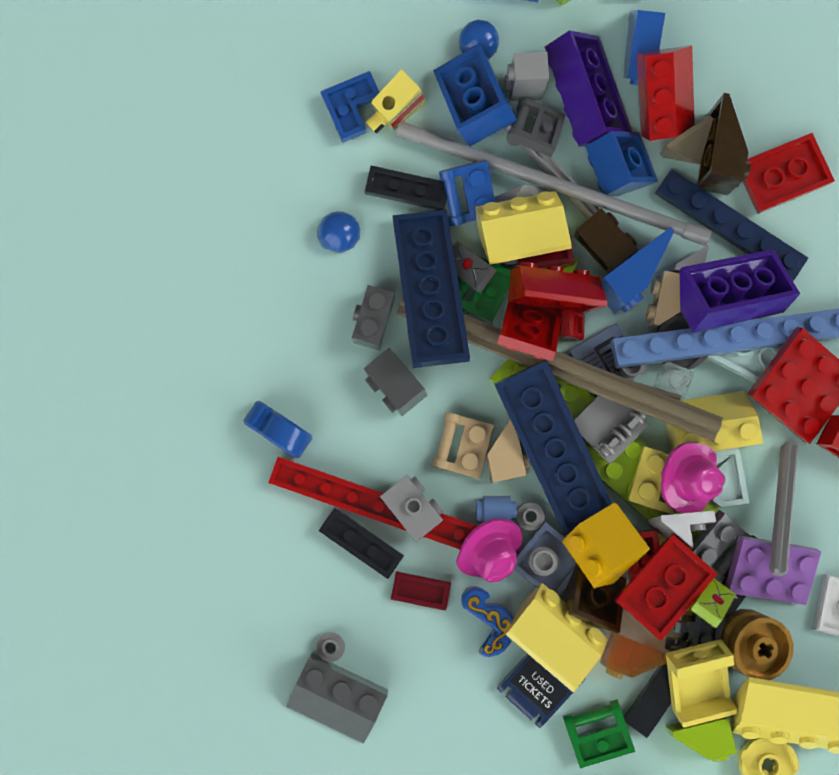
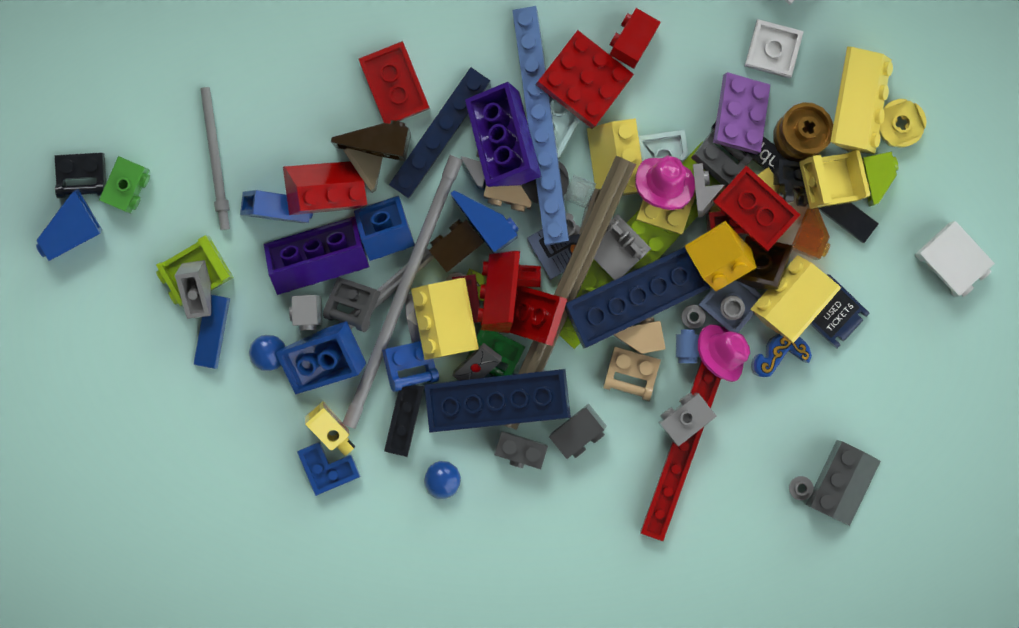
camera: 85 degrees left, 5 degrees up
(277, 429) = (617, 533): blue animal -> none
(361, 543) = (714, 461): black plate -> none
(421, 590) = (754, 411): dark red tile -> none
(601, 743) = (882, 262): green plate -> none
(713, 603) = (769, 168): lime tile -> none
(783, 510) = (690, 103): light grey axle -> none

